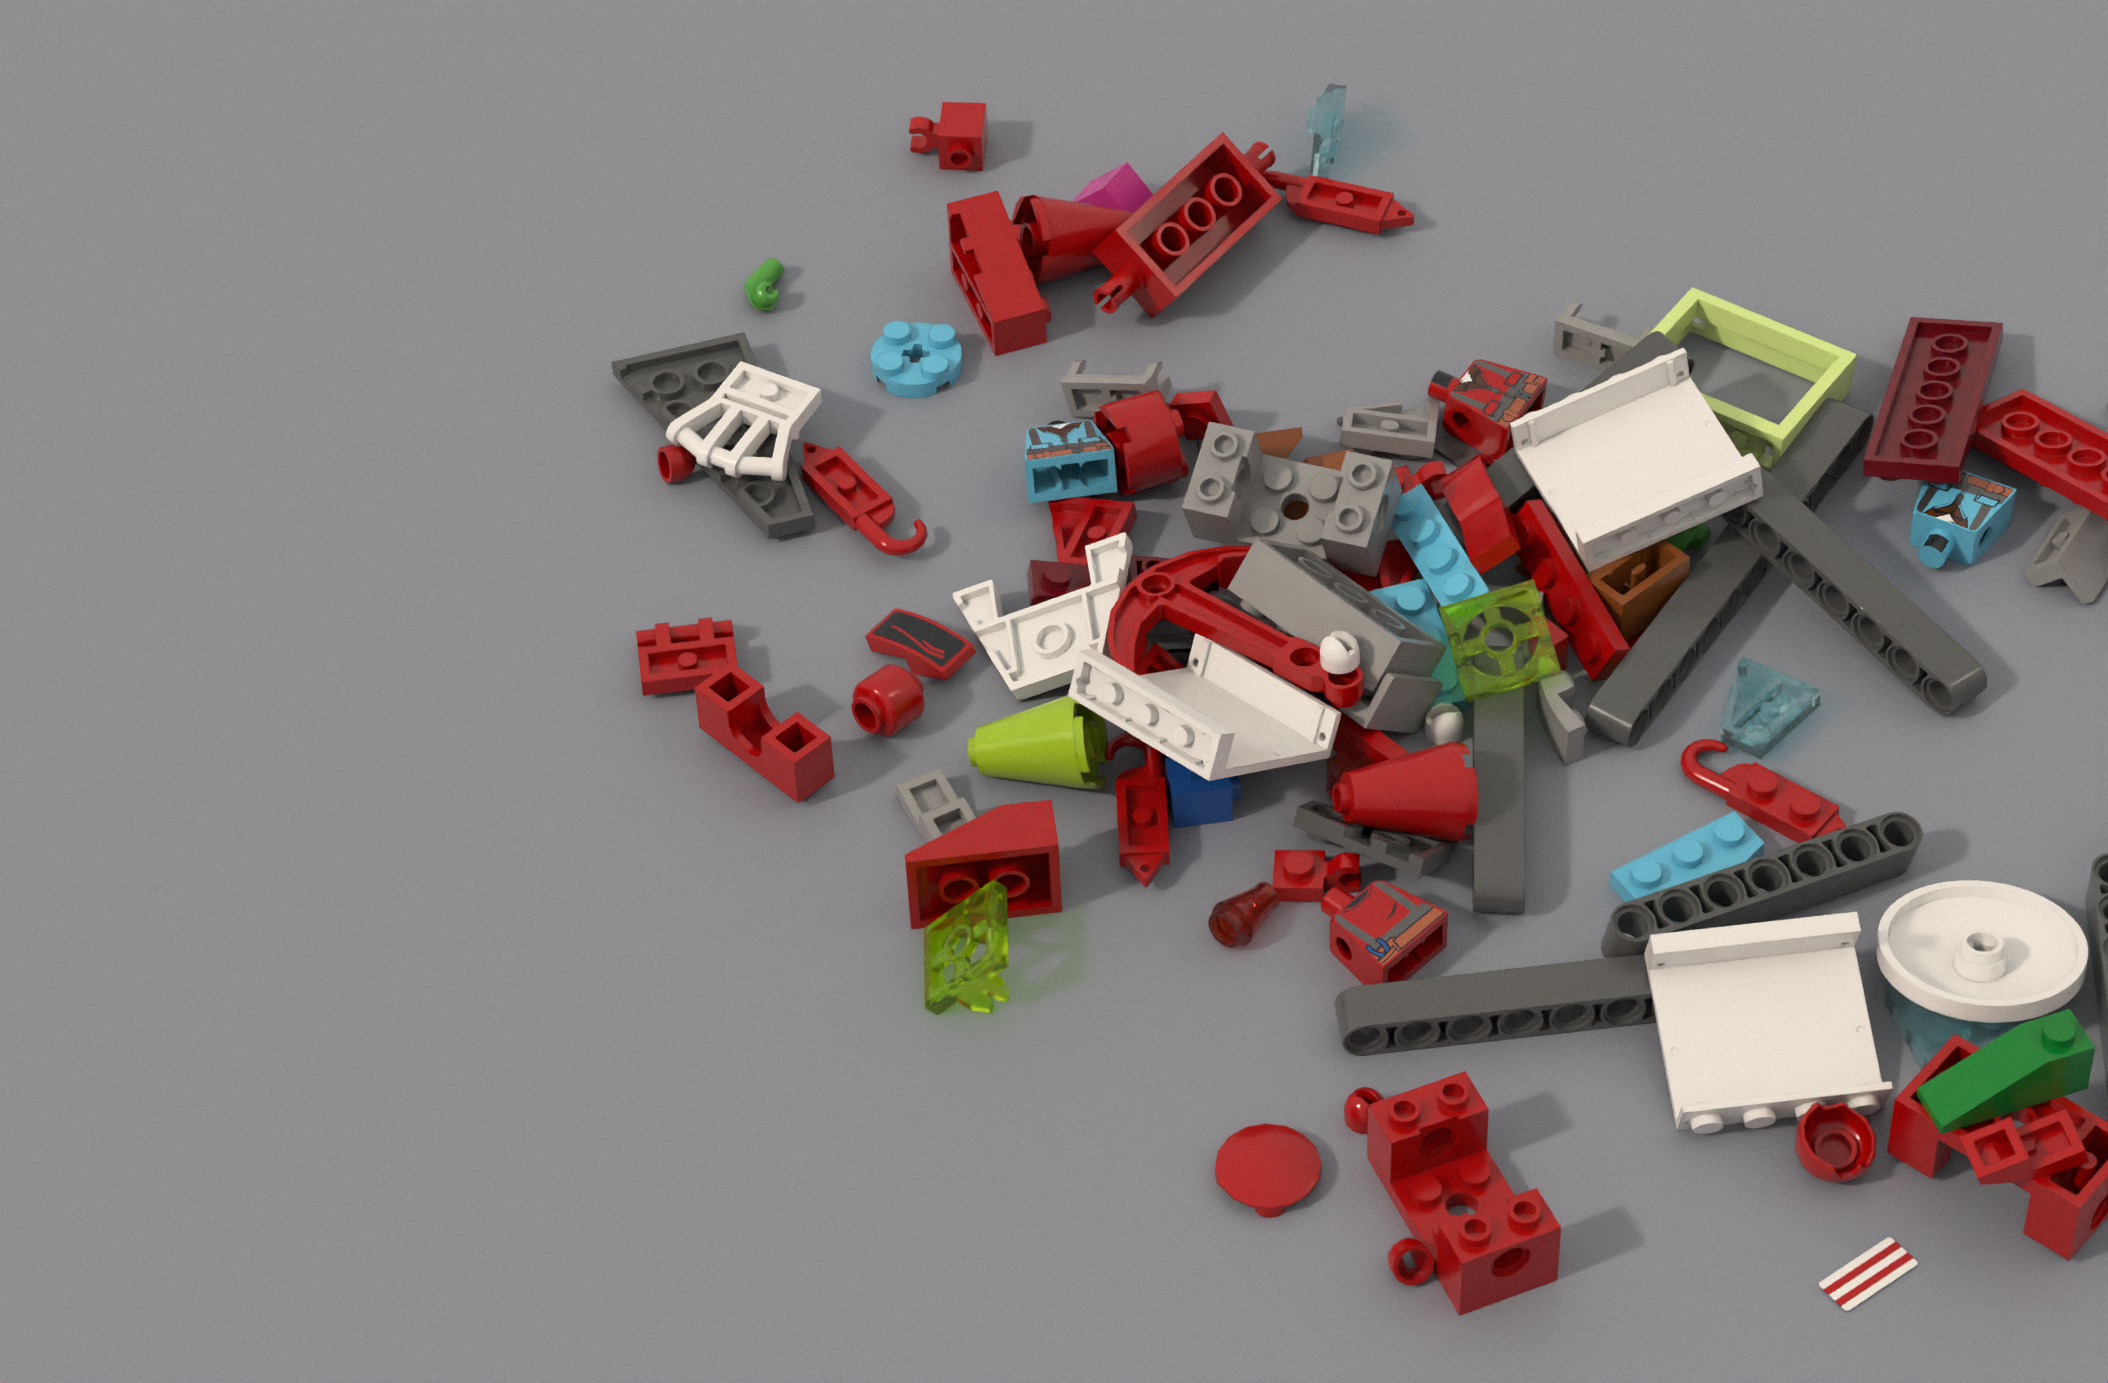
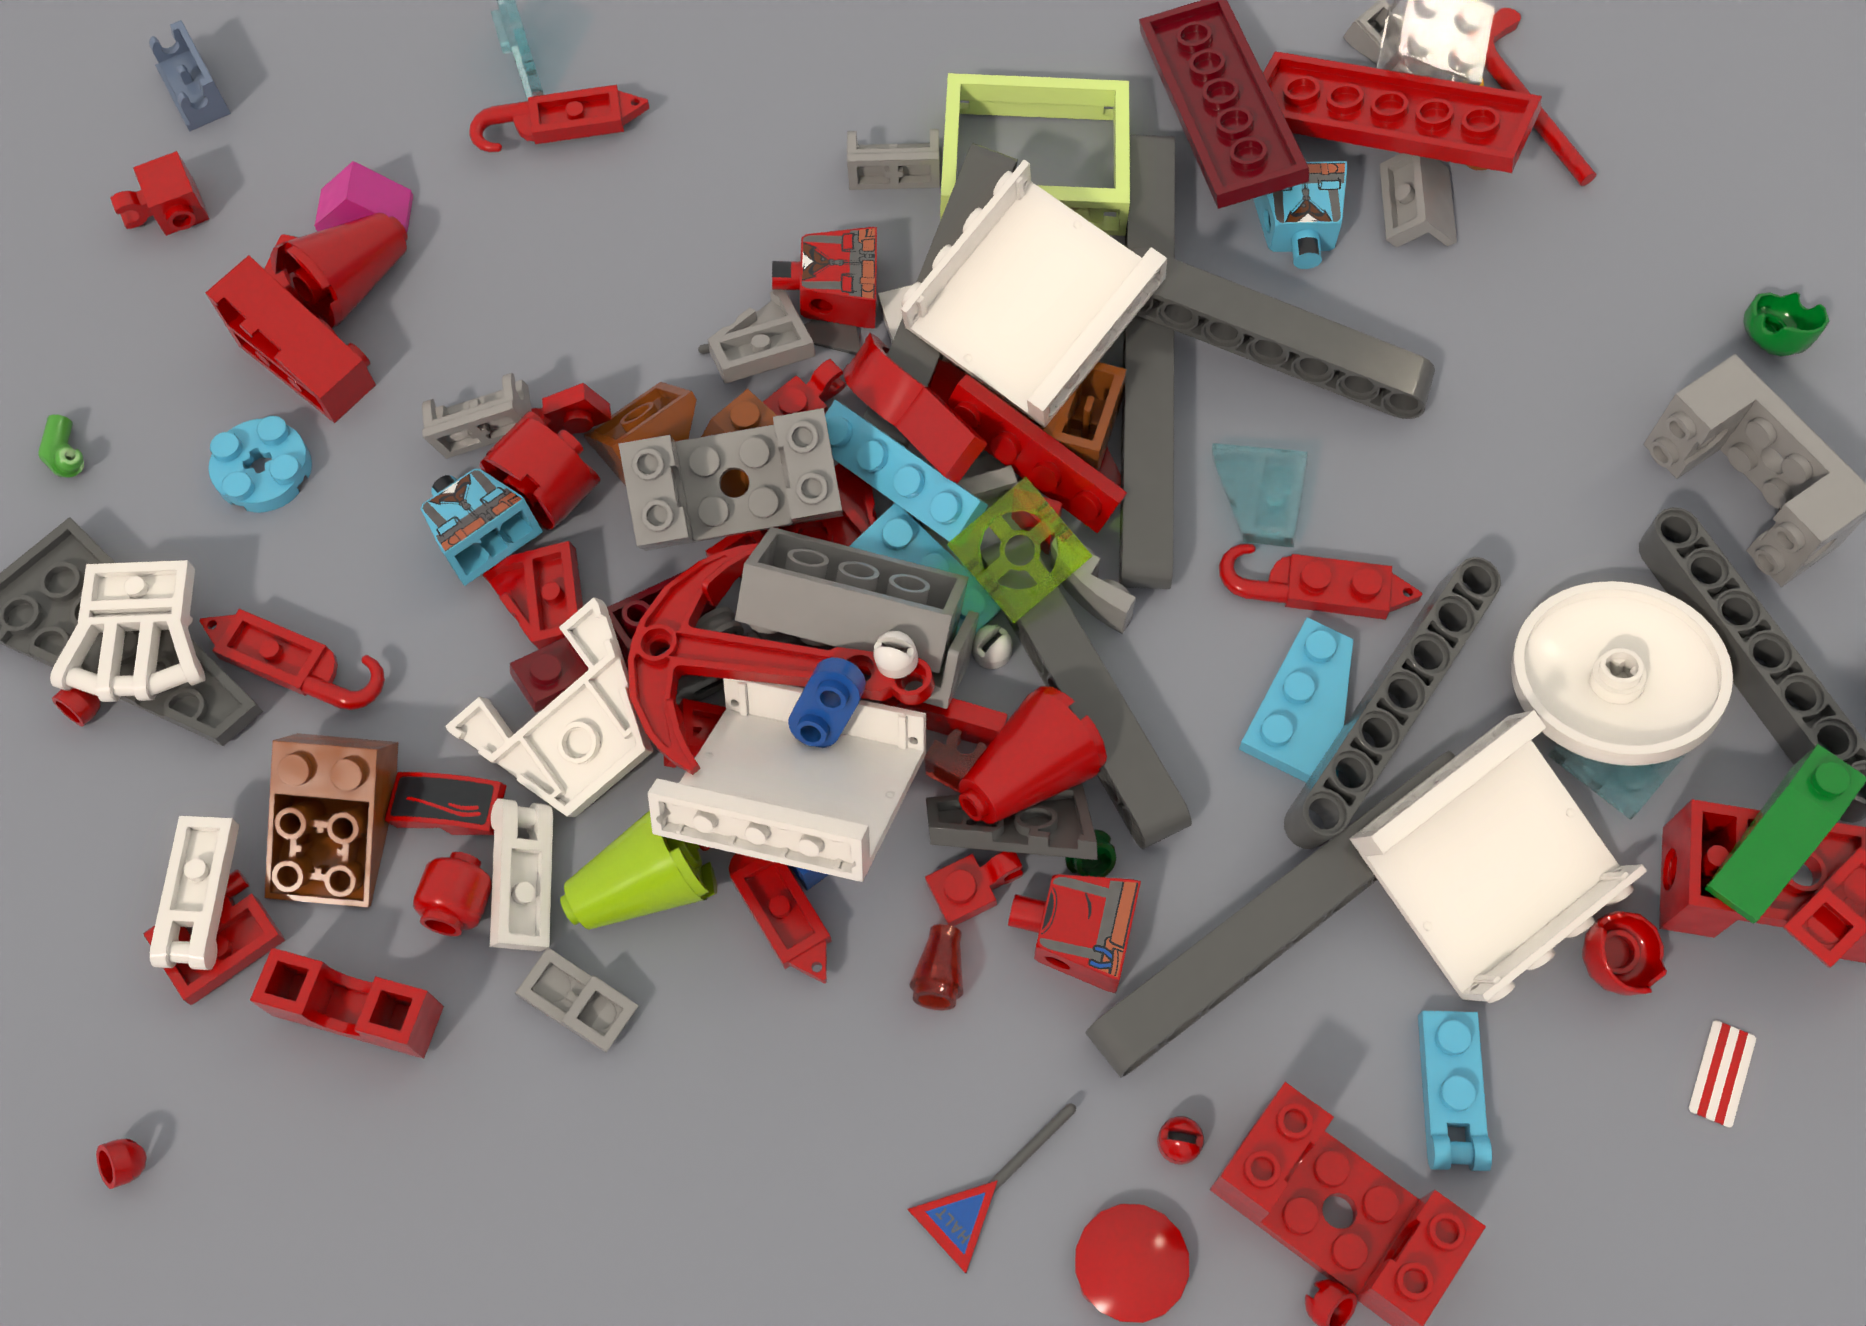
camera: 30 degrees left, 20 degrees up
(533, 765) = (120, 1162): none -> red hinge
(692, 611) = (194, 892): none -> white plate
(823, 612) = (328, 818): none -> dark orange slope
(948, 713) = (521, 876): none -> white plate
(978, 920) = (673, 1180): clear neon green piece -> none
(1006, 845) = (680, 1052): red slope -> none
(1028, 58) = (188, 79): none -> sand blue hinge
(1148, 1085) = (960, 1217): none -> piece
(1186, 226) = (448, 208): red brick -> none
(1261, 676) = (827, 702): none -> blue plate
(1434, 882) = (1096, 868): none -> dark green plate
(1620, 1176) = (1453, 1089): none -> medium azure plate

